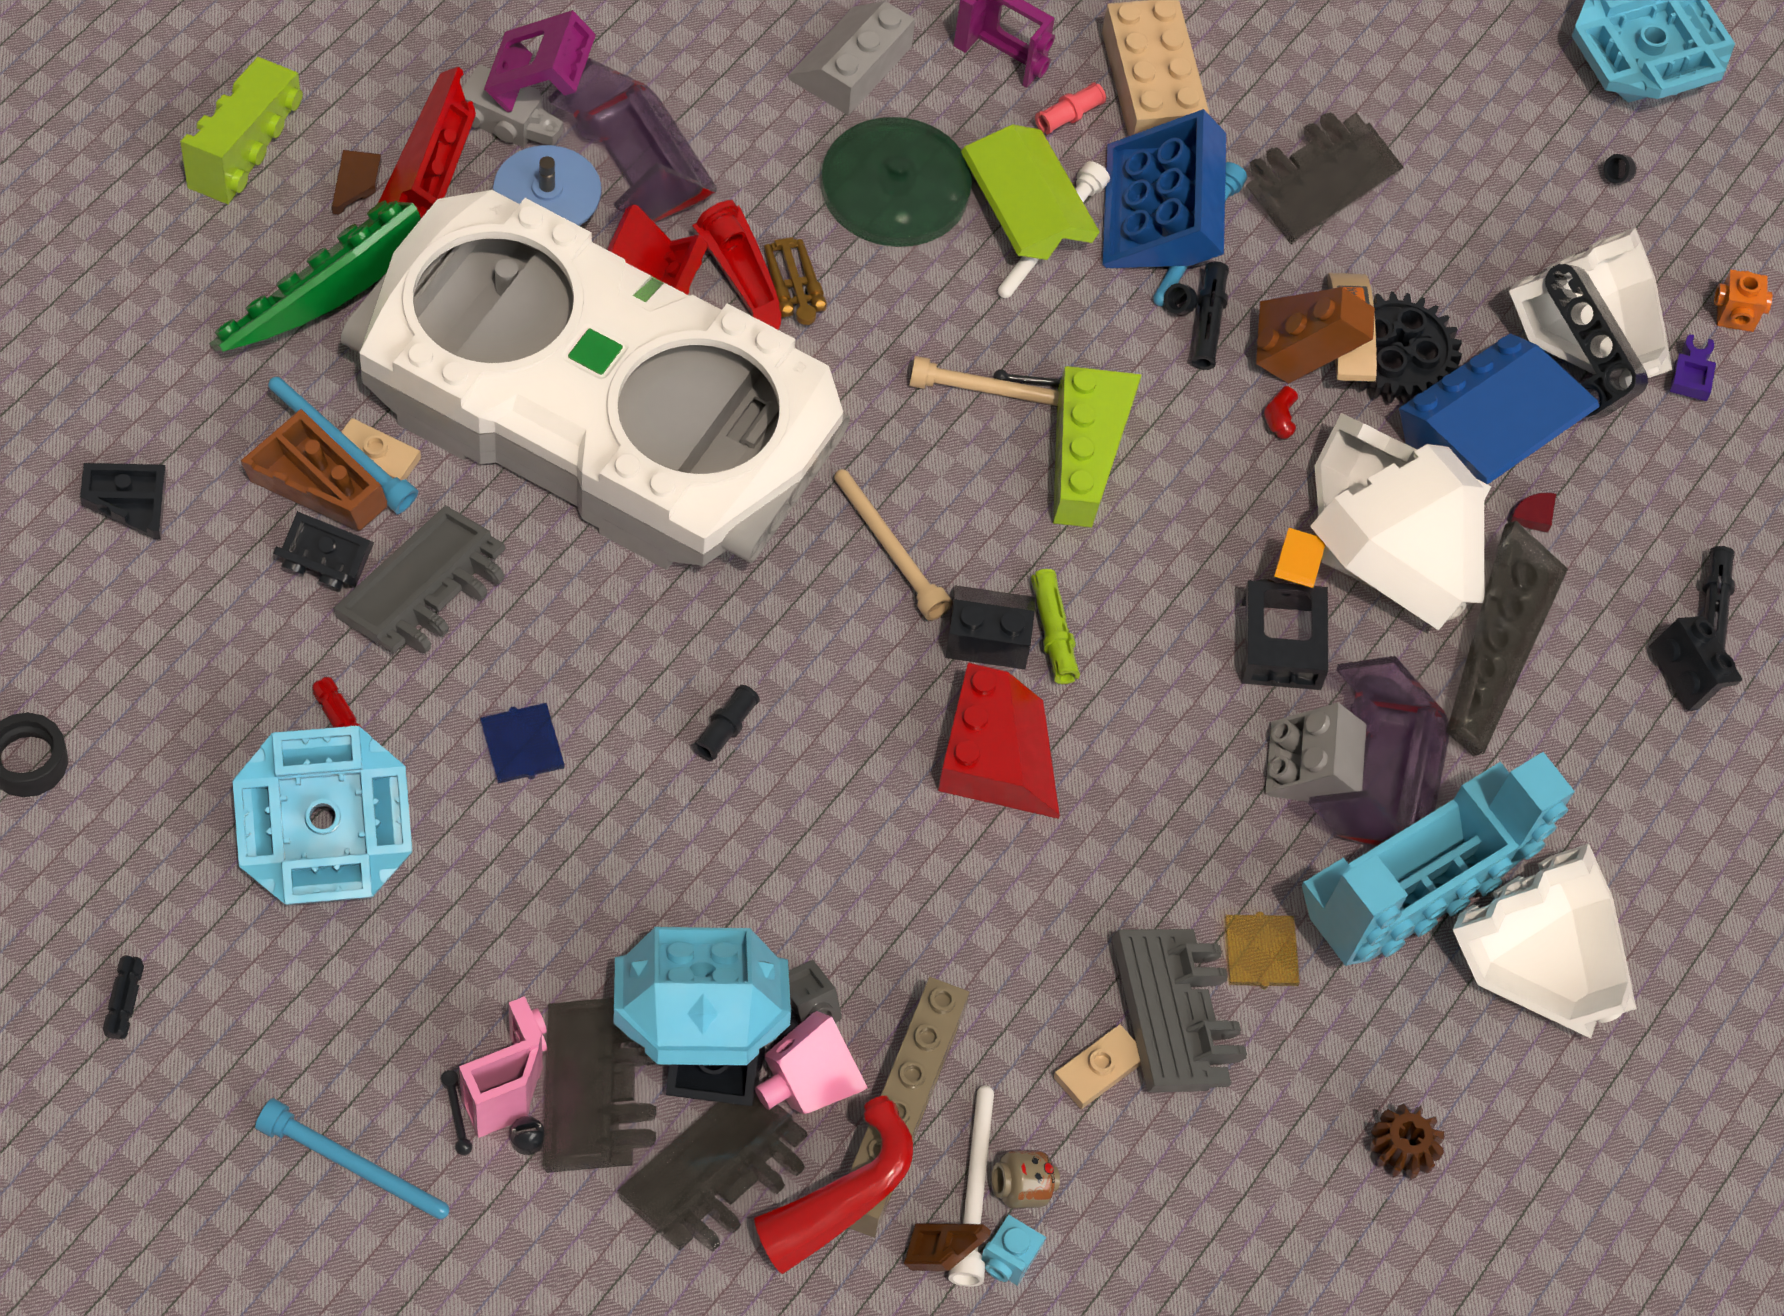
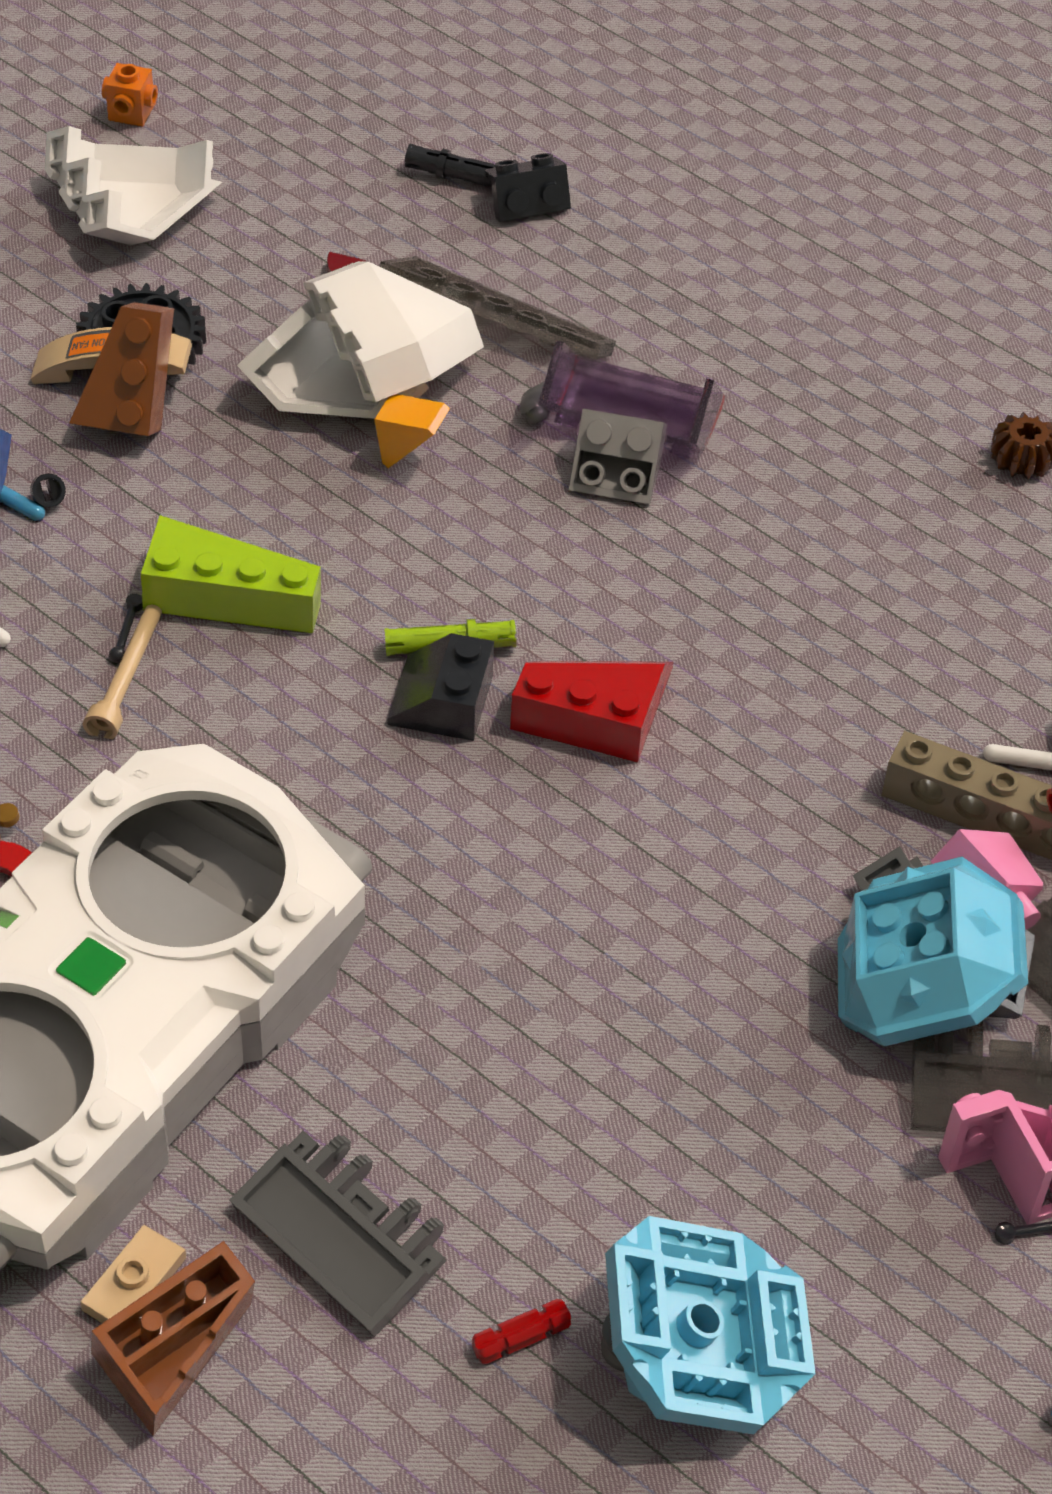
camera: 80 degrees left, 10 degrees down
(324, 549) = (287, 1336): black bracket -> none
(398, 492) = (81, 1339): dark azure piece -> none
(522, 743) = (566, 1140): clear blue piece -> none
(726, 722) = (556, 932): black pin -> none
(932, 600) = (408, 736): tan piece -> none
(1099, 1067) = (957, 660): tan plate -> none
(1170, 1019) = (889, 598): dark grey hinge -> none
(1215, 280) = (72, 470): black pin -> none
(1261, 950) = (822, 529): clear yellow piece -> none
(1278, 414) = (203, 436): red arm -> none
(1279, 660) = (505, 470): black window -> none
(1437, 861) = (793, 401): medium azure wedge -> none
(1497, 407) = (242, 262): blue slope -> none
(1552, 943) = (825, 322): white panel -> none
(1591, 335) = (173, 179): black beam -> none
(1693, 372) = (183, 135): dark purple plate -> none

